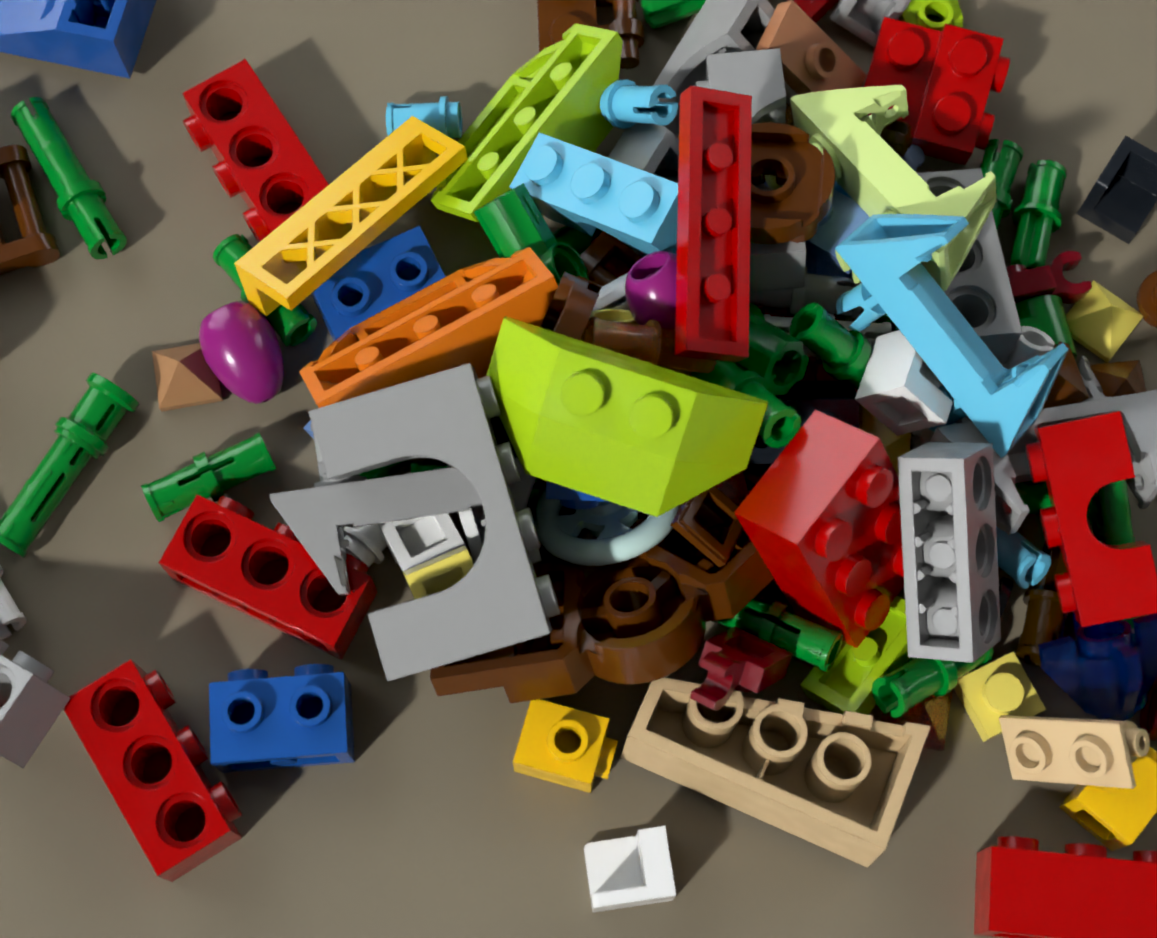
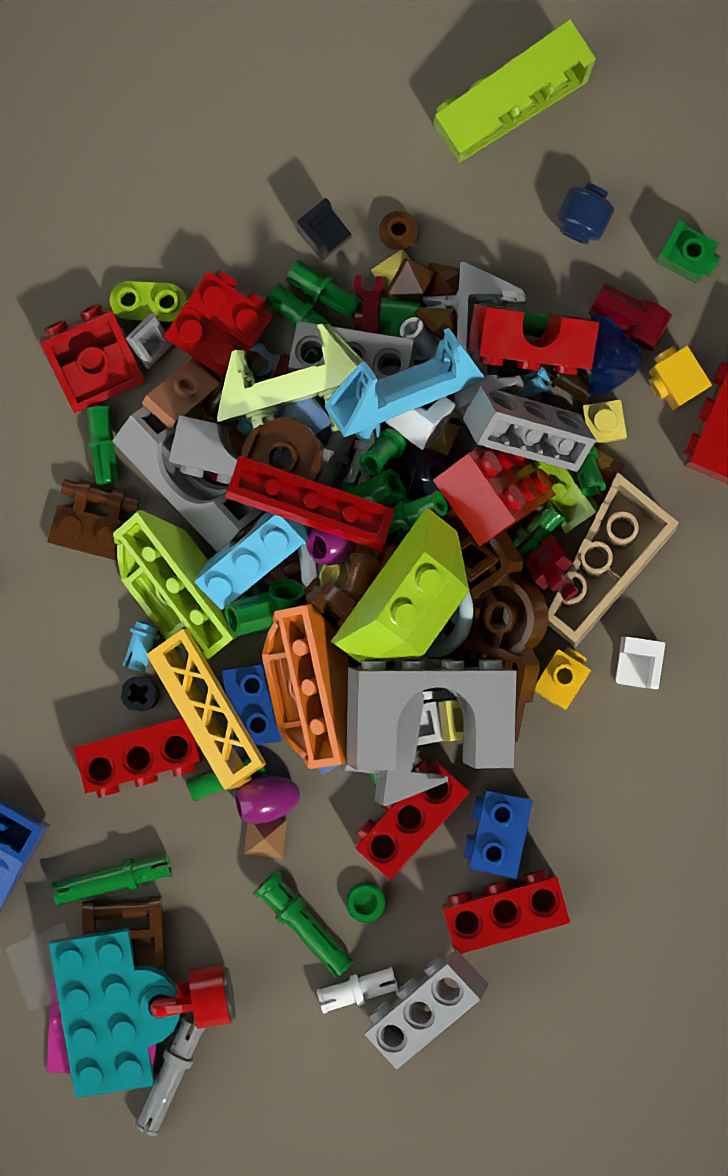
camera: 70 degrees left, 15 degrees up
(120, 550) = (365, 902): none -> green tile
(208, 476) = (341, 866): green pin -> none
(353, 133) = (128, 691): none -> black bush
(629, 104) = (181, 519): medium azure pin -> none
(1073, 750) = (653, 398): tan hinge -> none
(1103, 332) = (410, 281): none -> reddish brown slope

